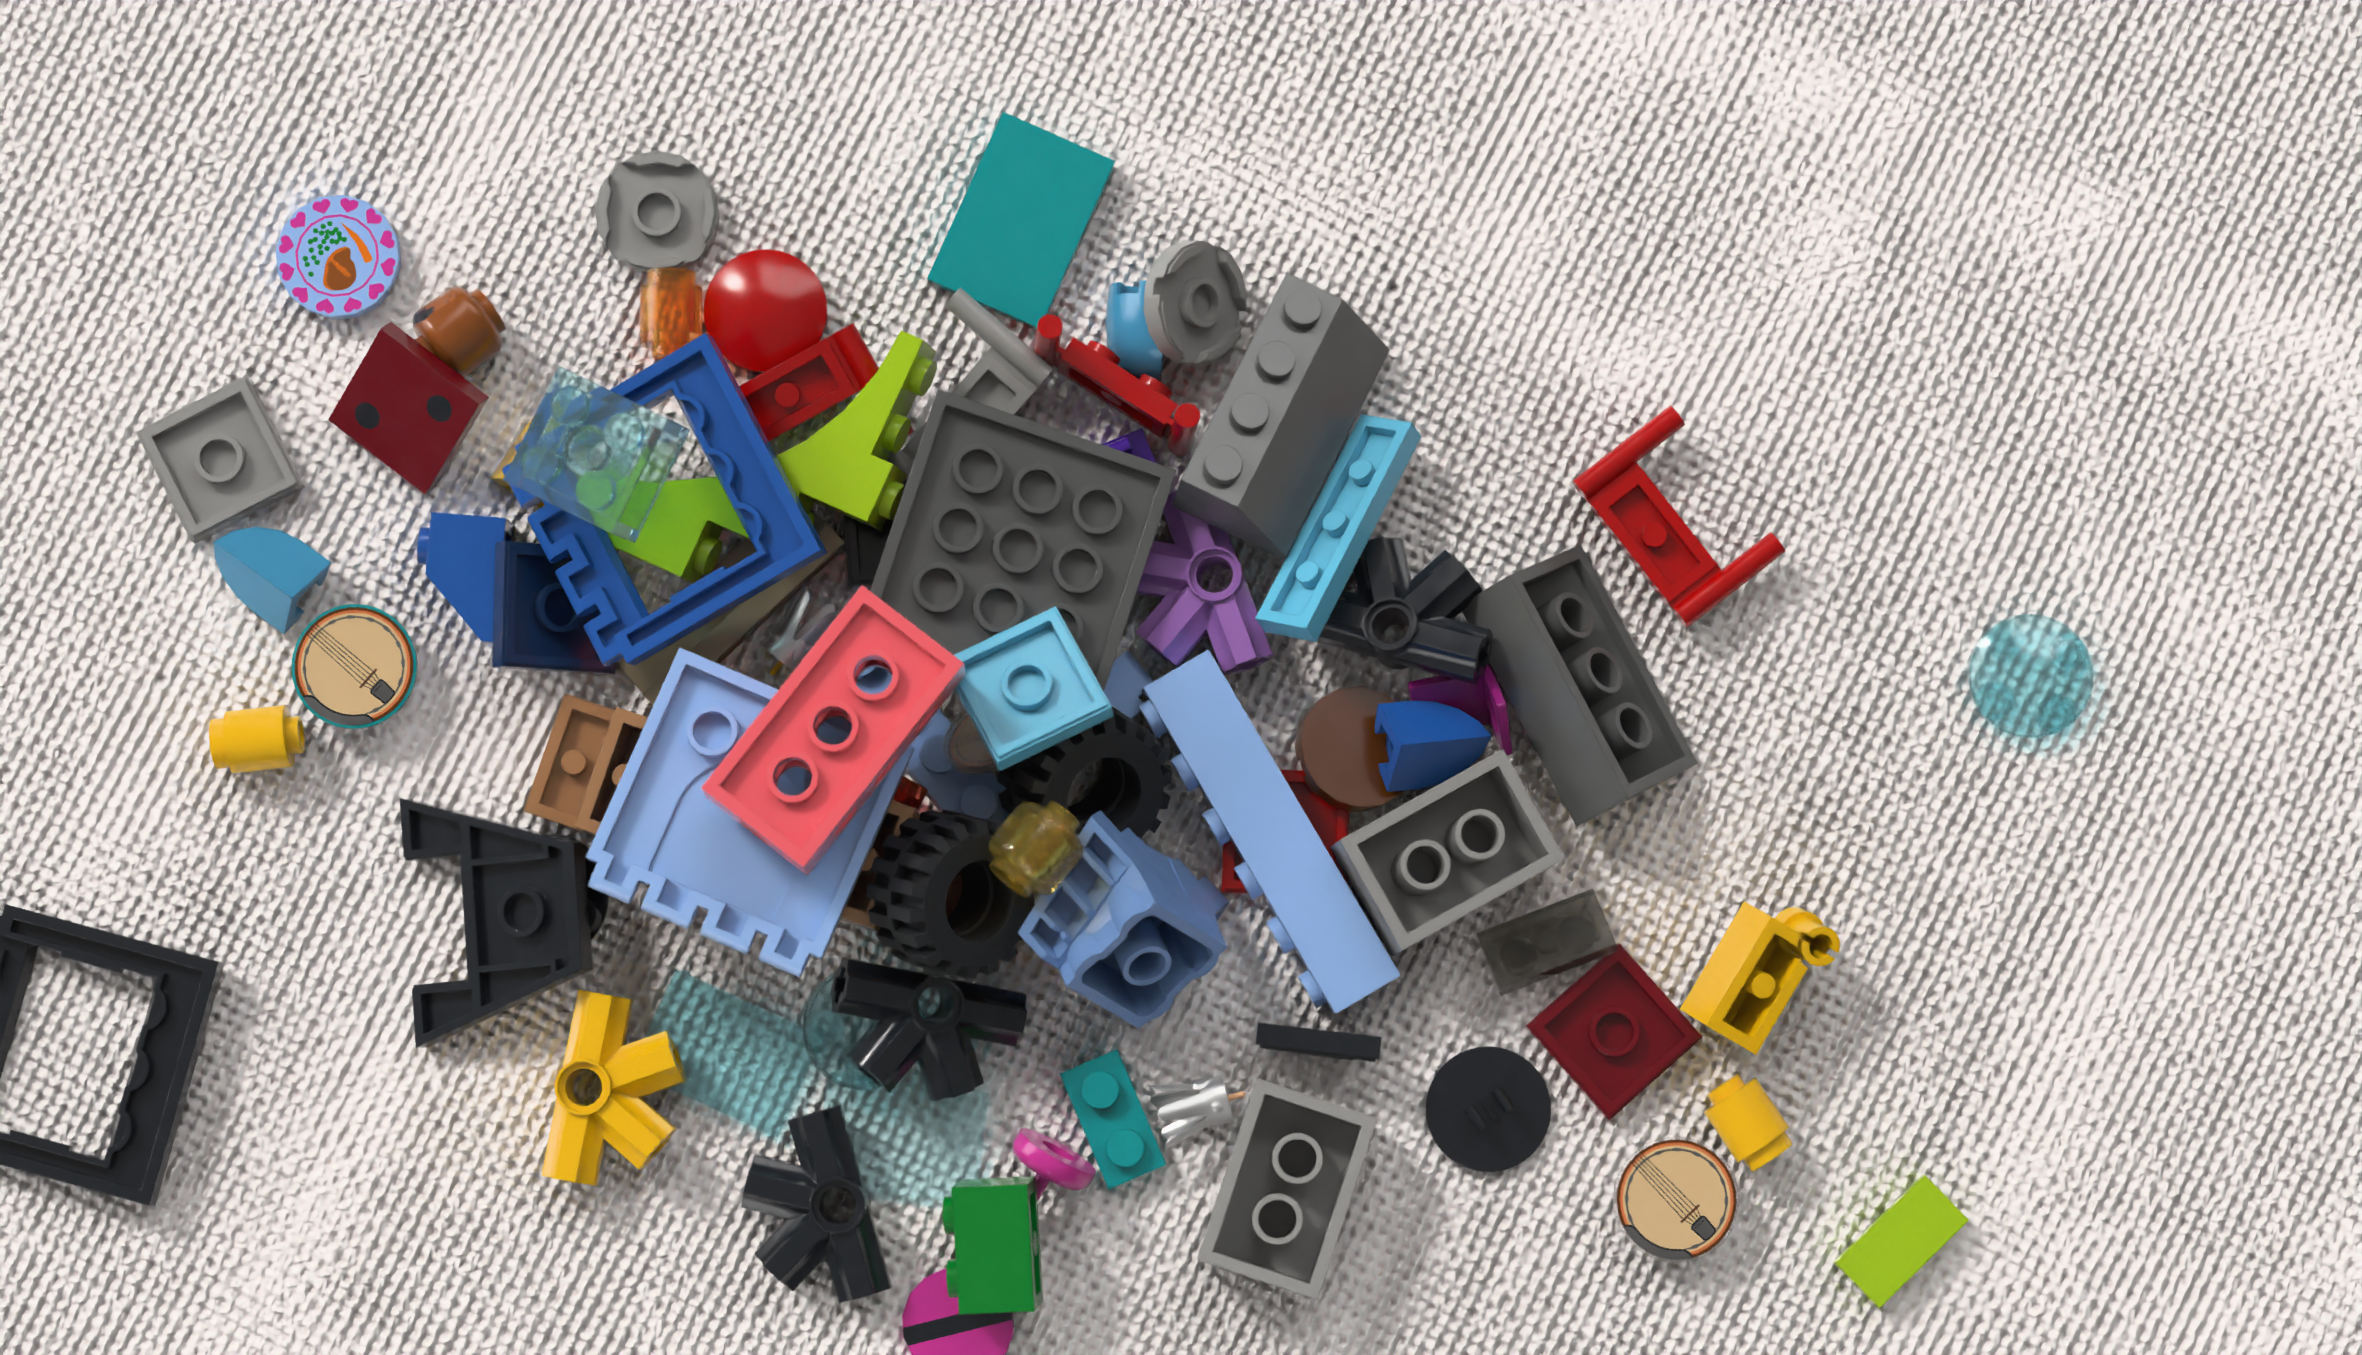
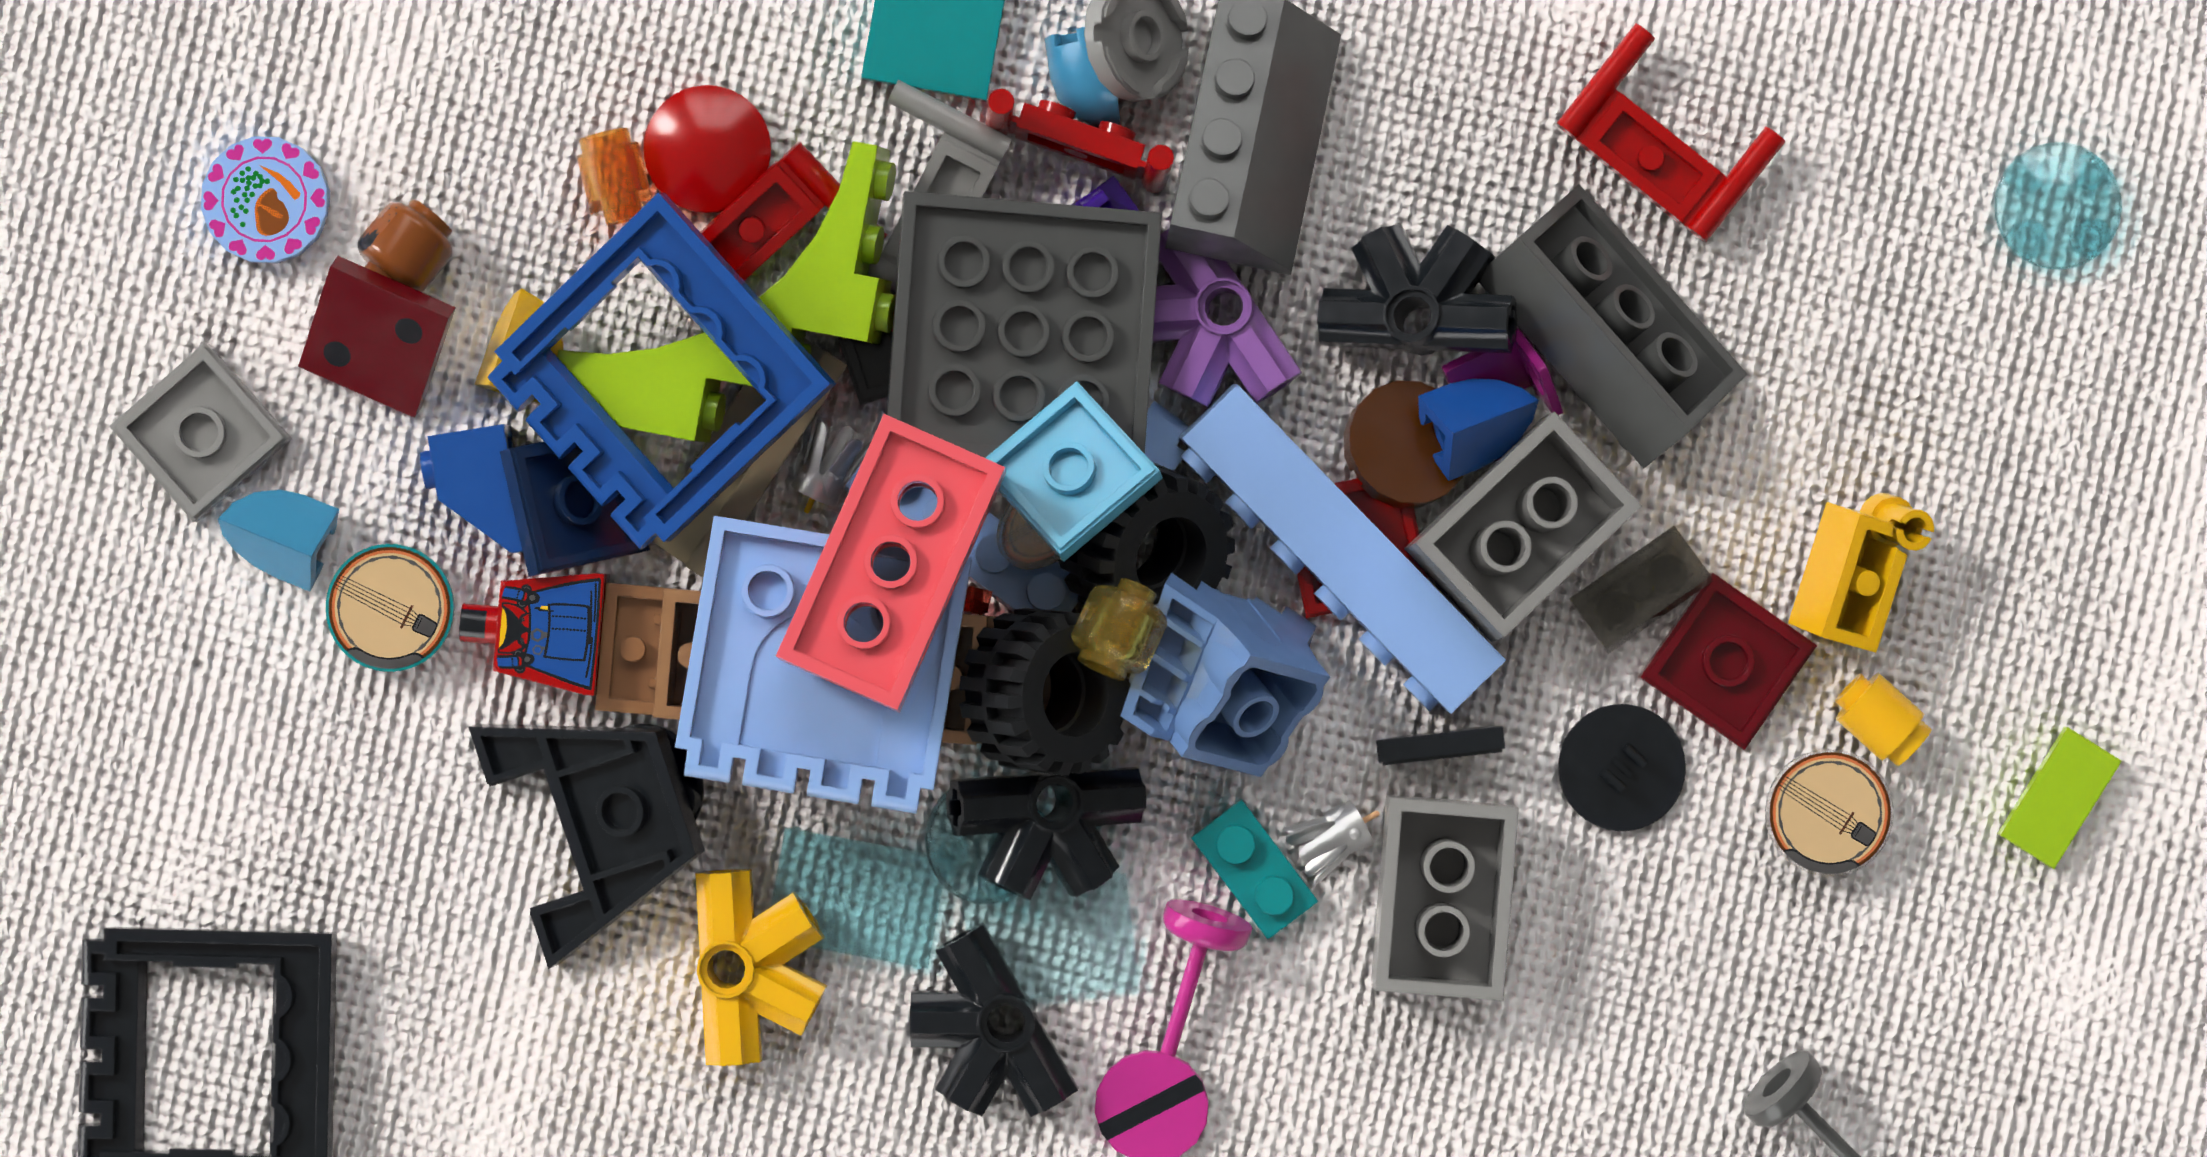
camera: 15 degrees left, 5 degrees up
(256, 739) = (311, 703): yellow brick -> none
(494, 722) = (543, 629): none -> torso
(596, 454) = (581, 343): clear light blue brick -> none
(657, 212) = (573, 76): light grey tile -> none
(994, 1245) = (1171, 1024): green brick -> none
(1338, 527) = (1336, 229): medium azure plate -> none

